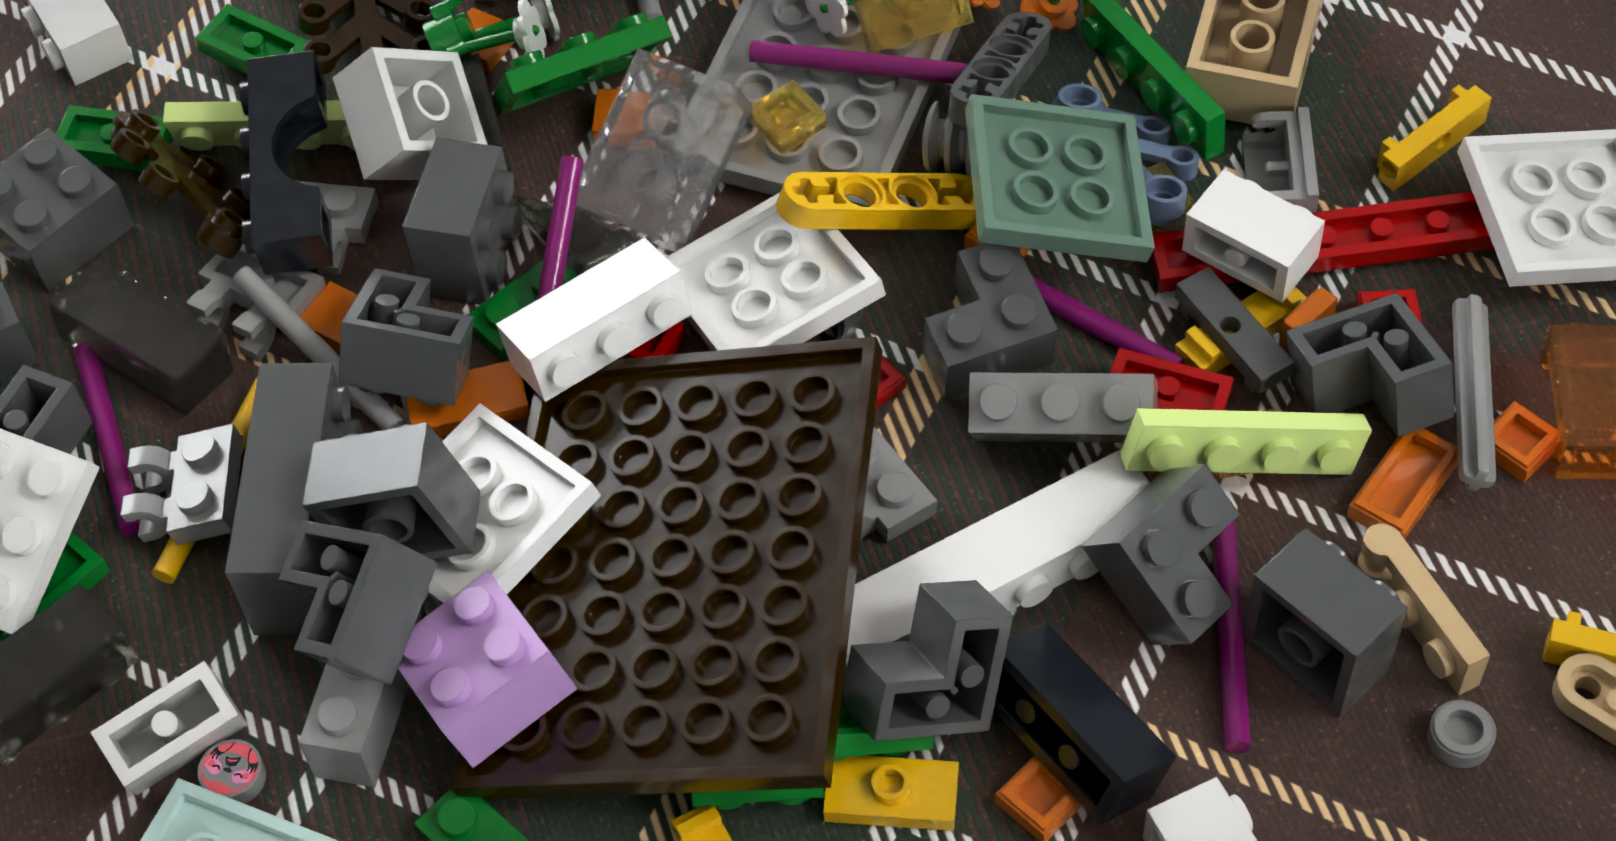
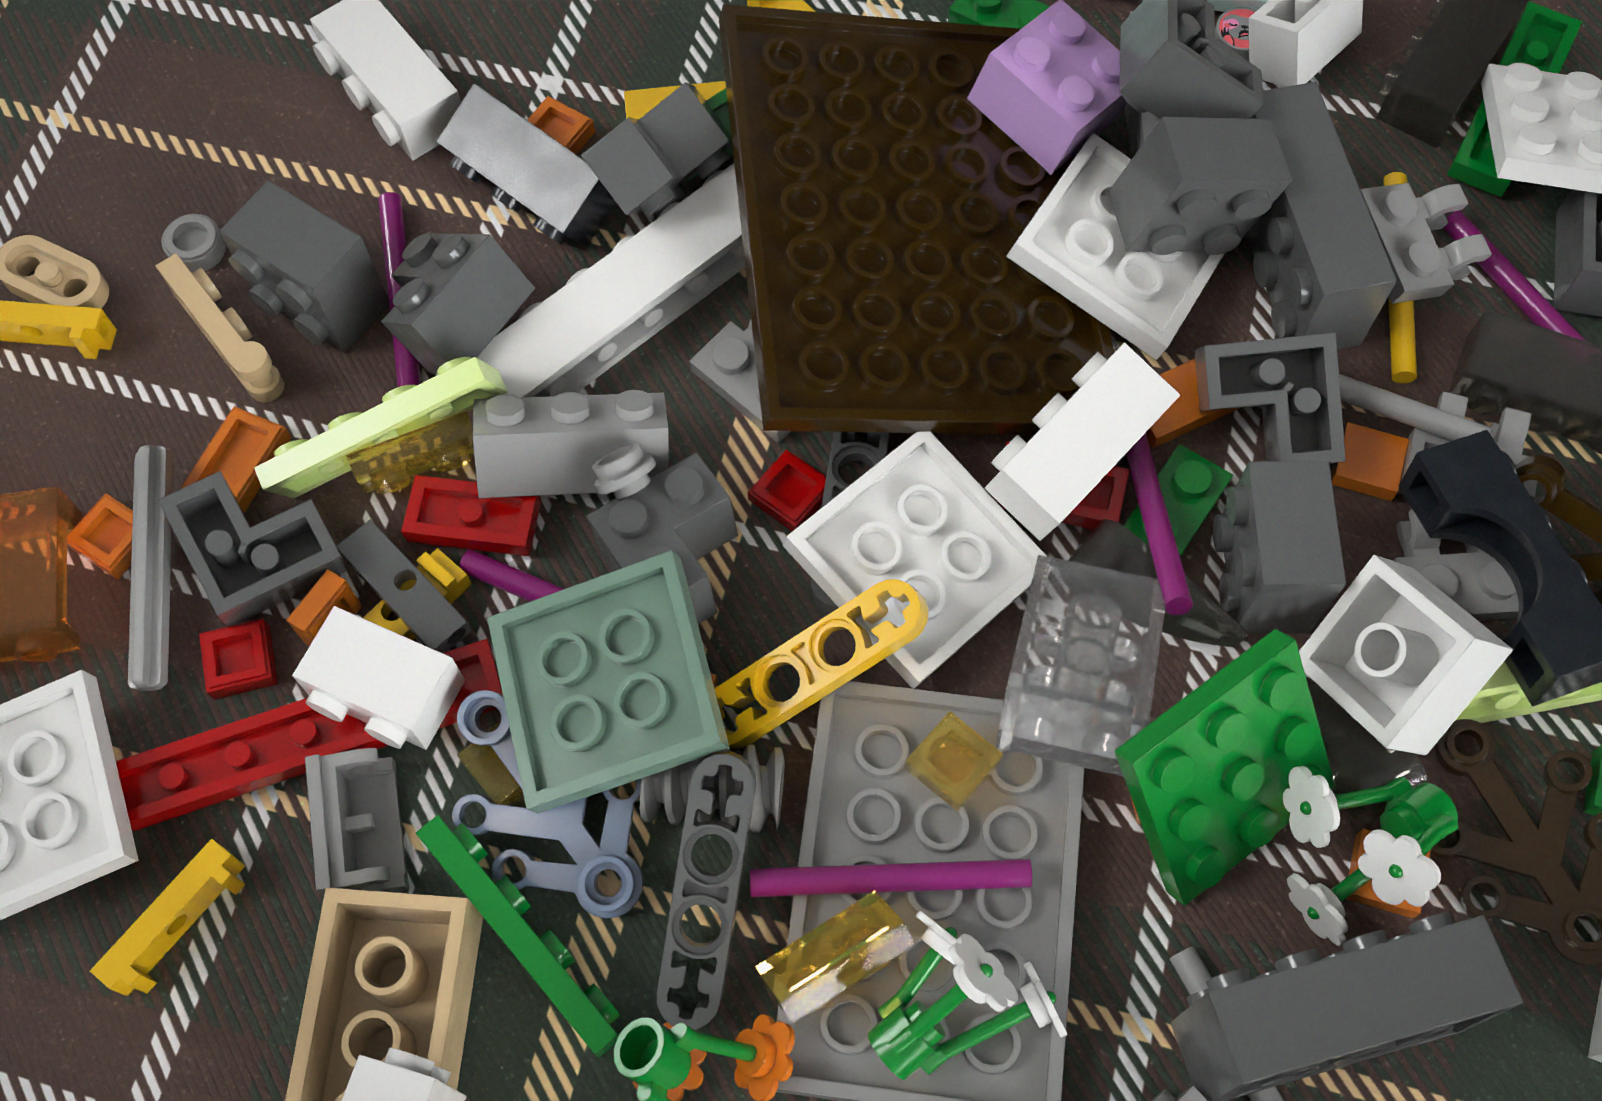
camera: 165 degrees right, 10 degrees up
(1030, 355) = (623, 471): none -> light grey plate

